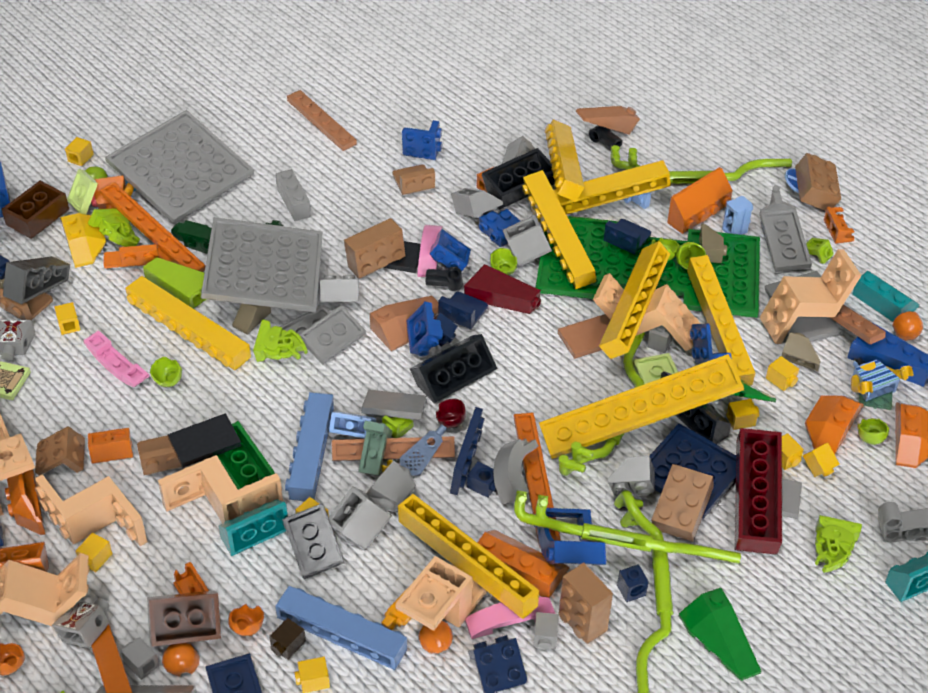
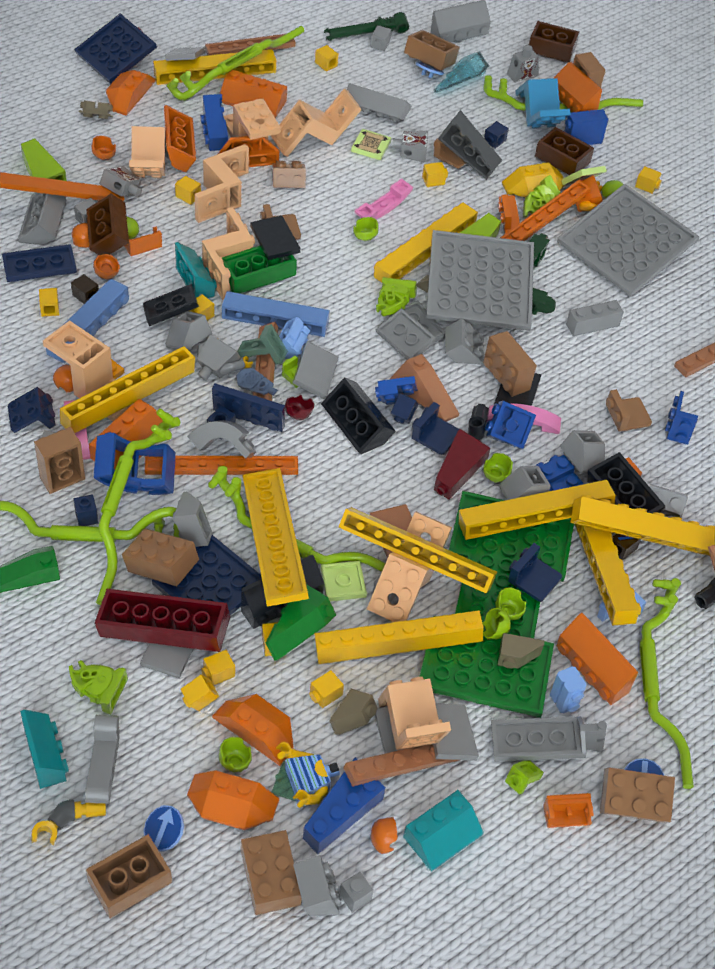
camera: 90 degrees right, 5 degrees up
(110, 445) = (292, 197): orange hinge -> none
(702, 343) = (351, 611): blue bracket -> none

